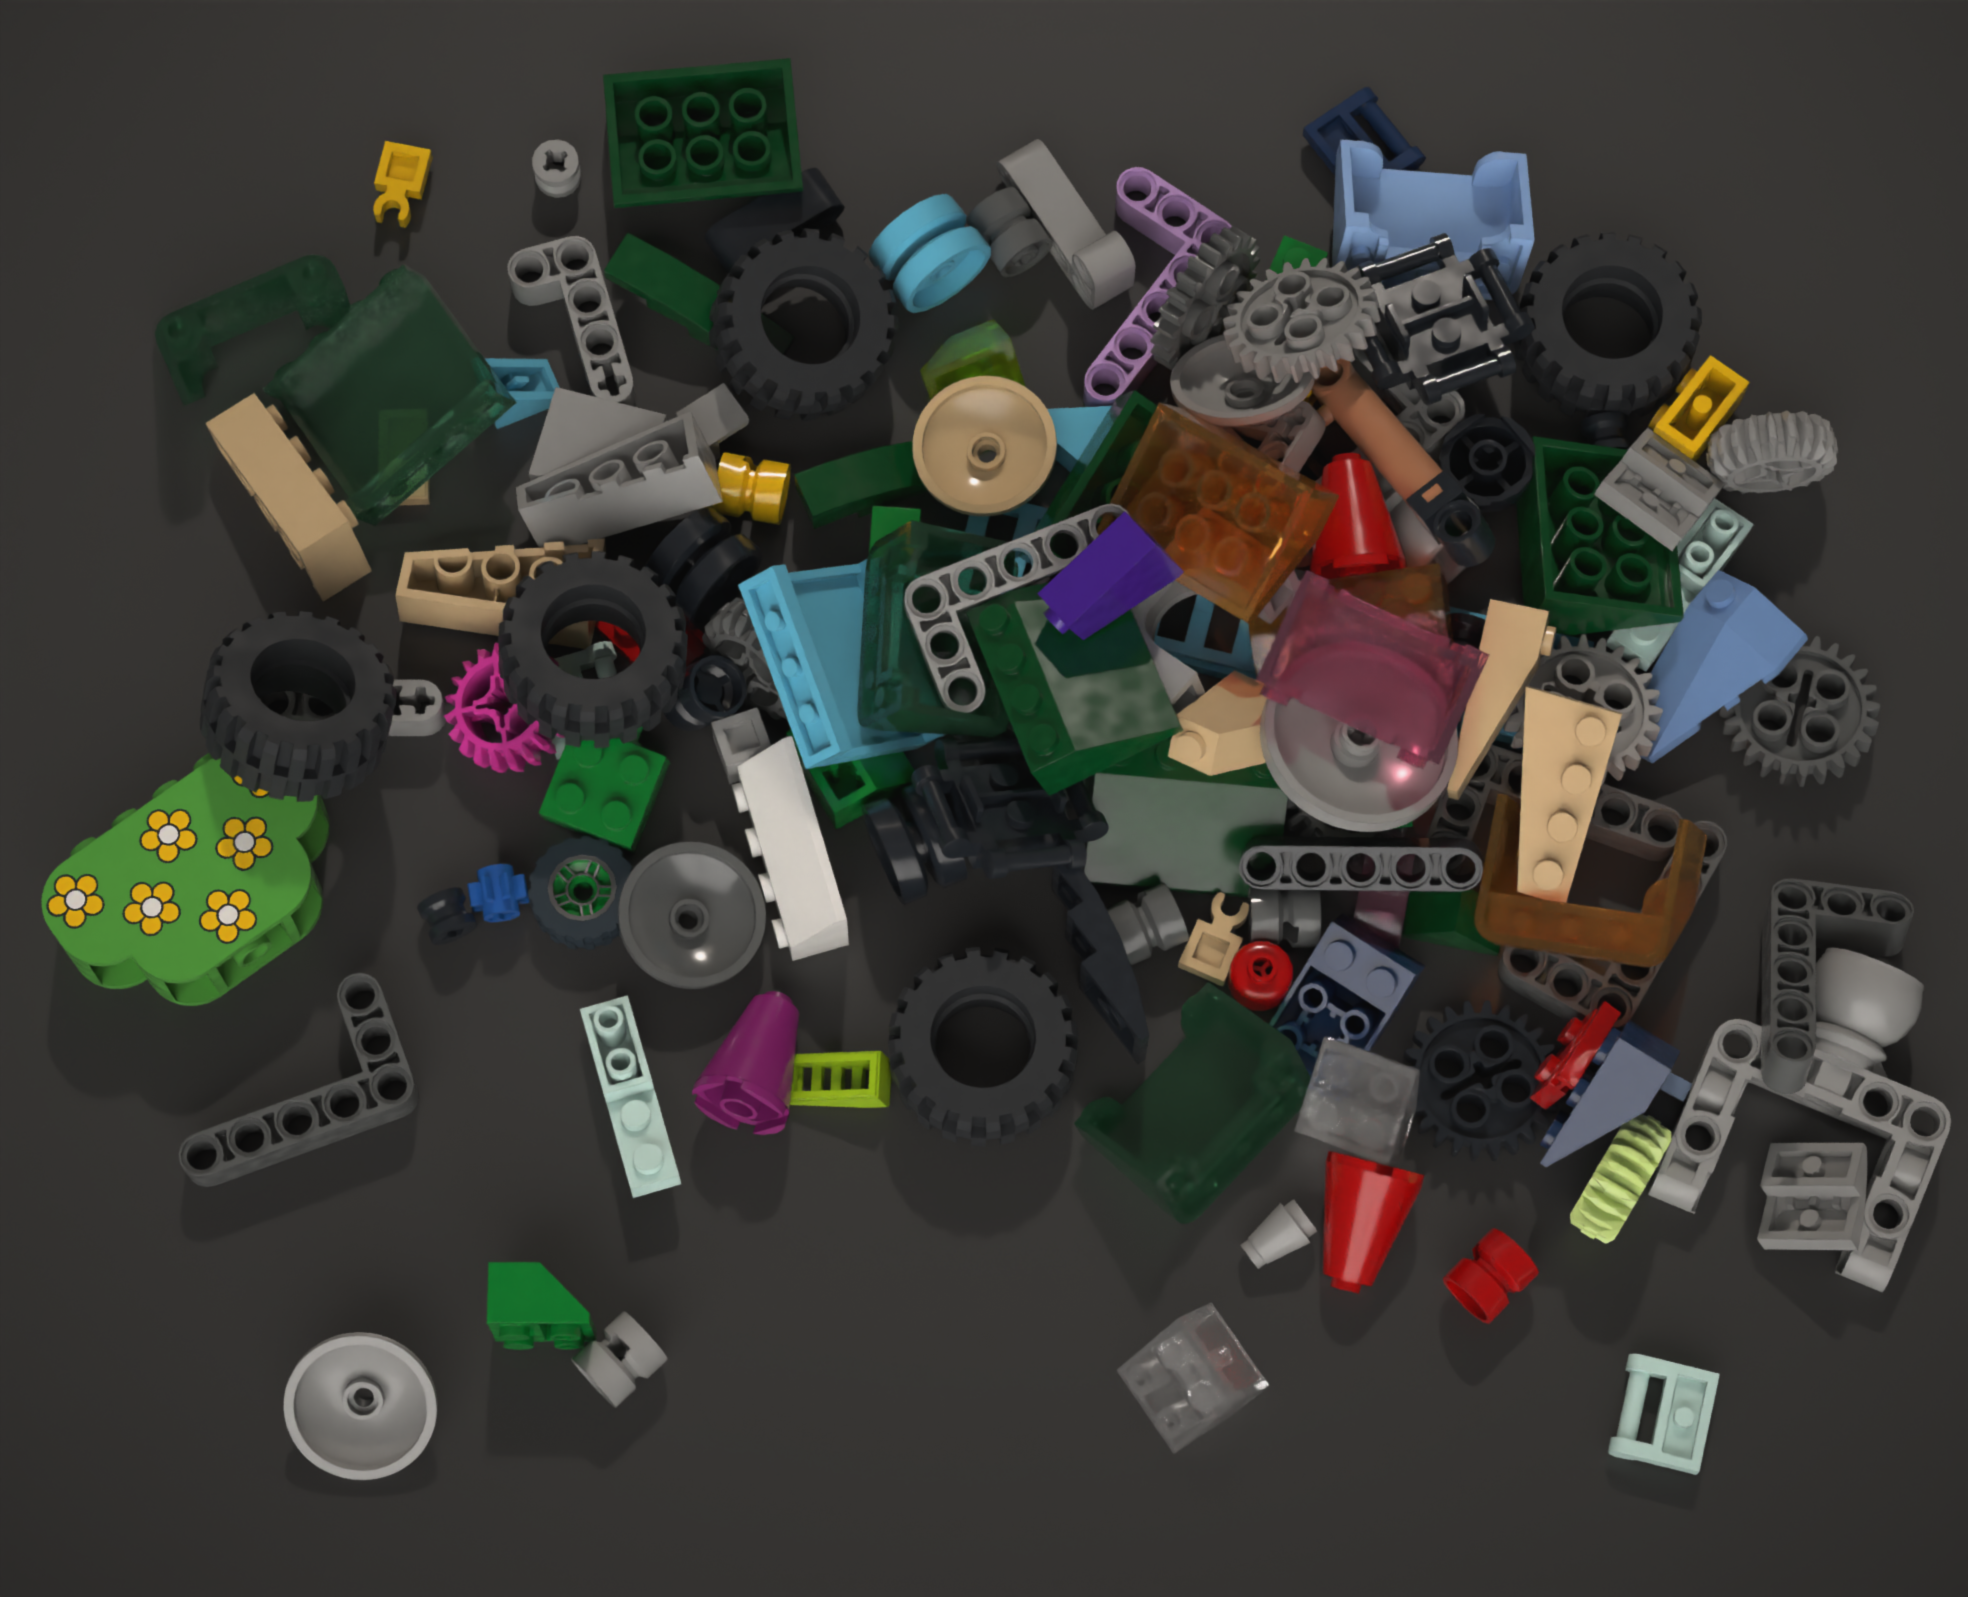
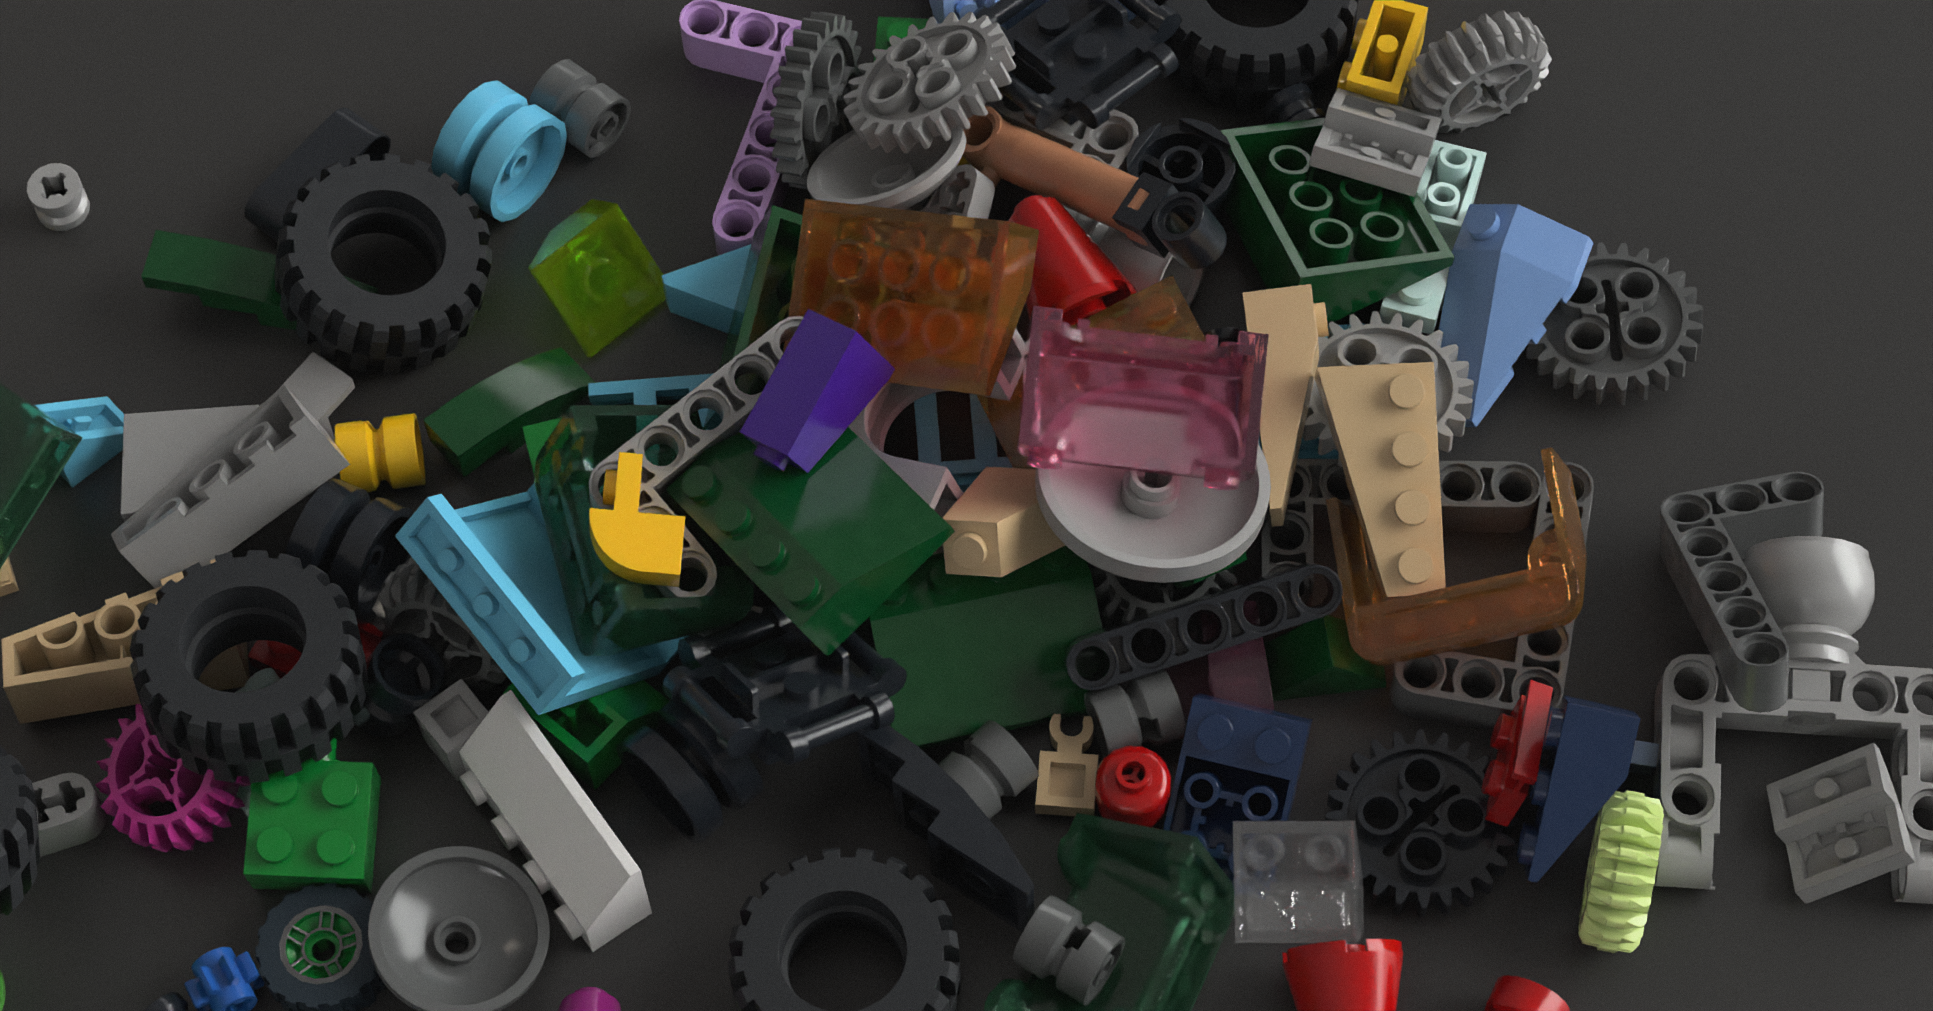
camera: 15 degrees left, 10 degrees down
(577, 288) = (116, 311): light grey beam -> none
(702, 133) = (208, 104): dark green slope -> none
(923, 655) = (633, 543): none -> yellow brick
(980, 417) = (619, 297): tan dish -> none
(1093, 262) = (677, 109): light grey beam -> none
(1150, 1077) = (1064, 947): none -> dark grey wheel

